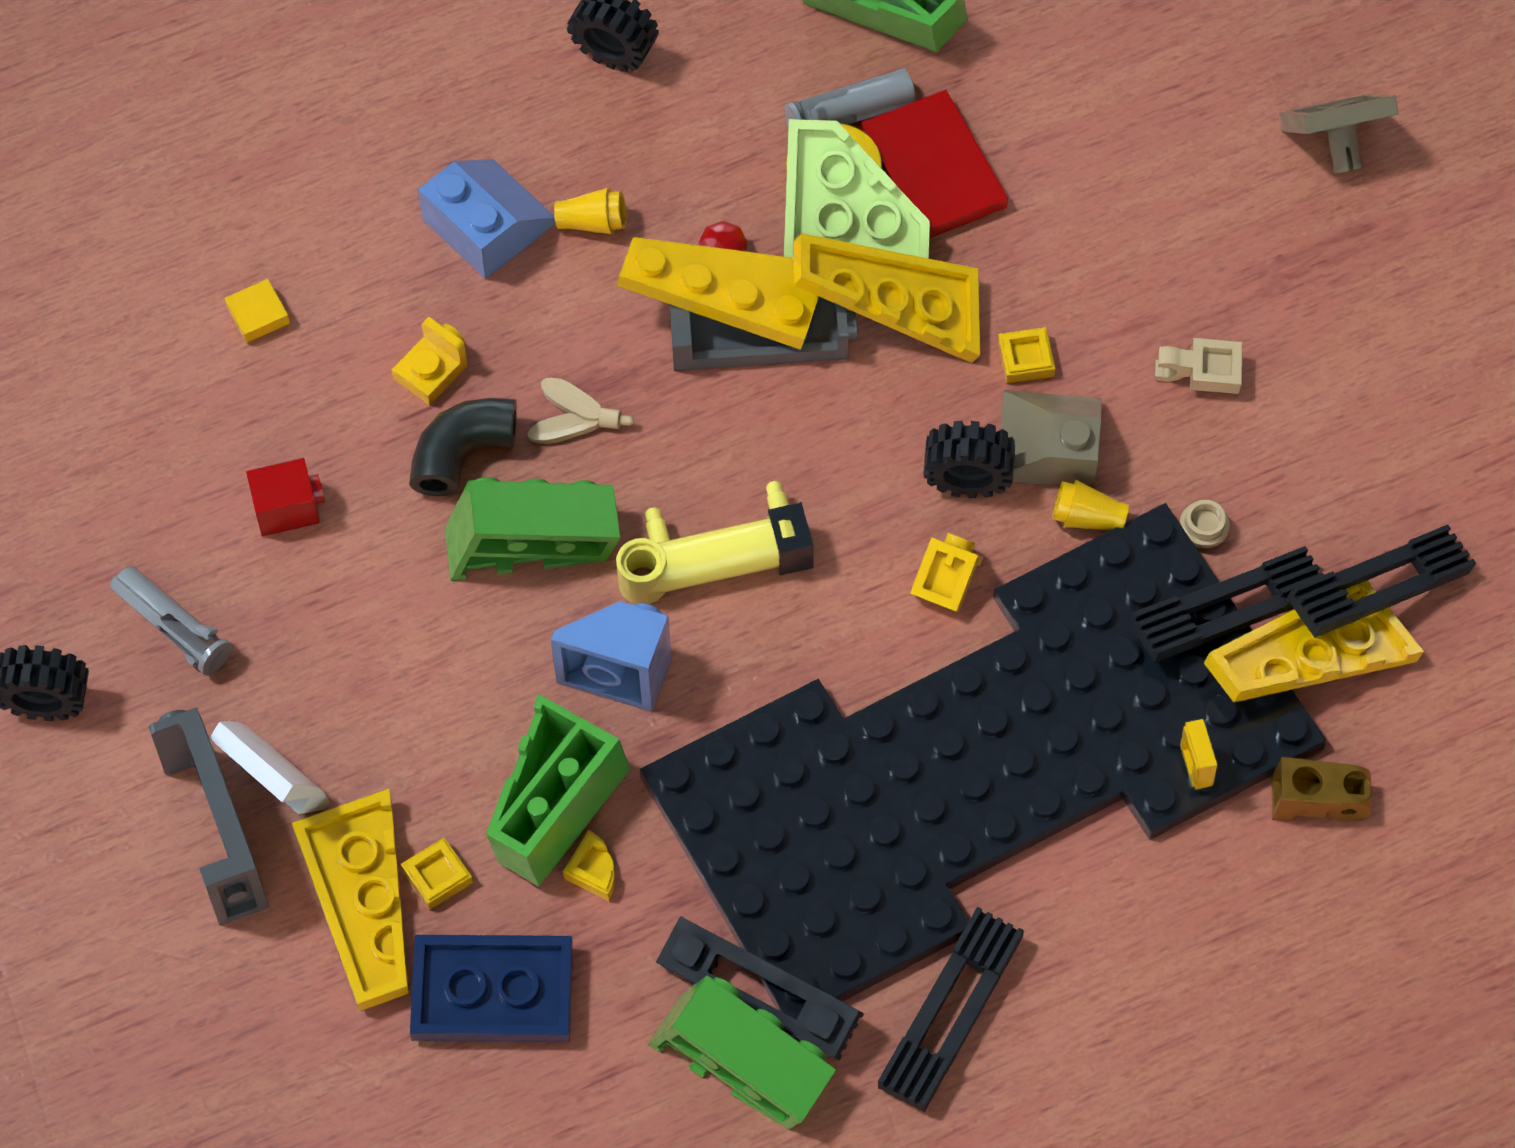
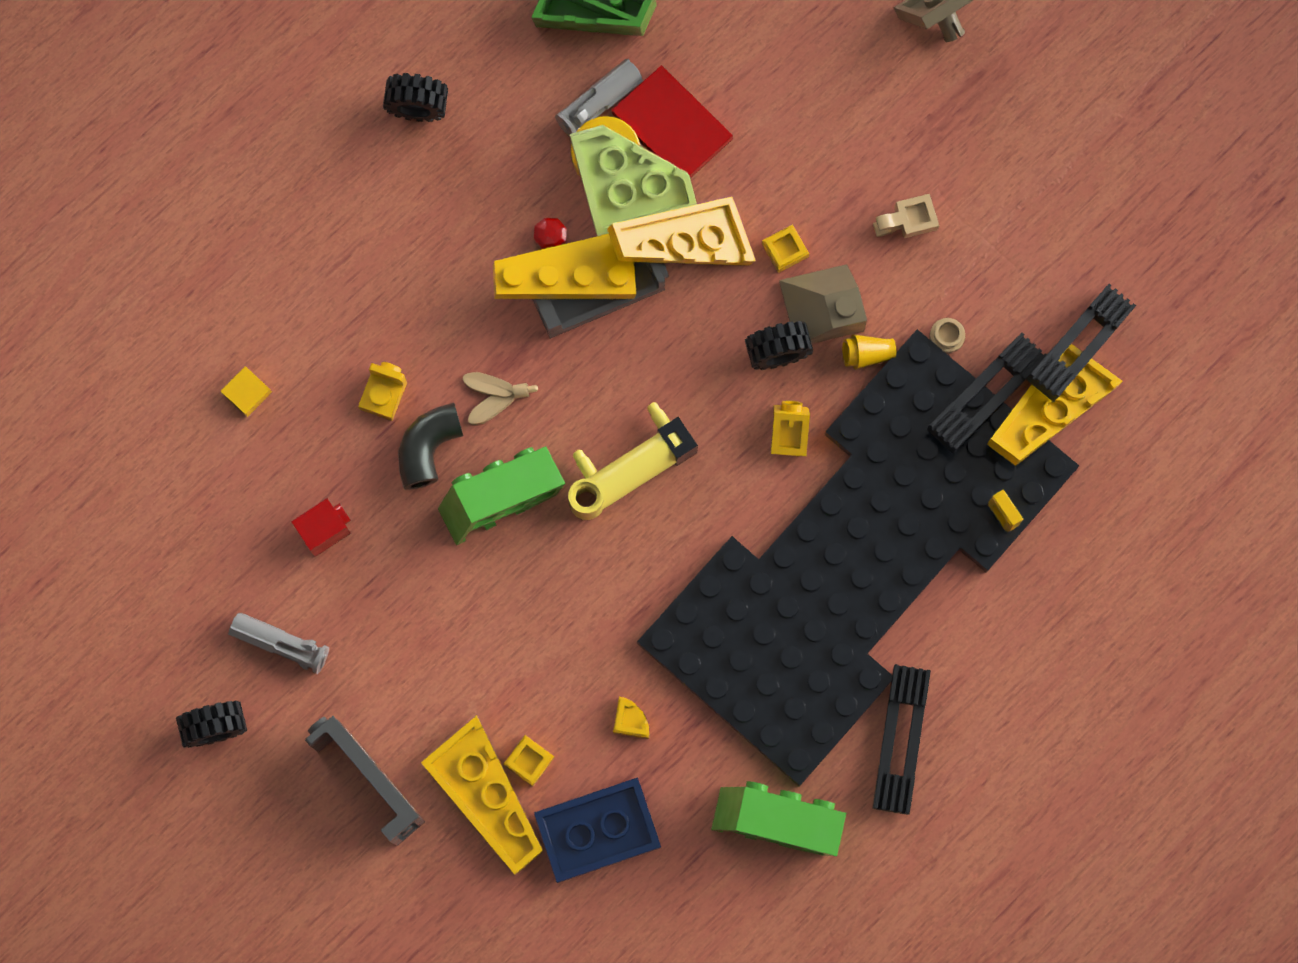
camera: 20 degrees left, 15 degrees up
(269, 767) = (392, 733): white slope -> none
(482, 213) = (376, 265): medium blue slope -> none
(554, 791) = (588, 679): bright green wedge -> none
(592, 212) = (452, 240): yellow cone -> none
(615, 653) = (595, 569): medium blue slope -> none
(823, 1019) = (825, 778): black container -> none
(1320, 790) = (1087, 504): pearl gold leg -> none

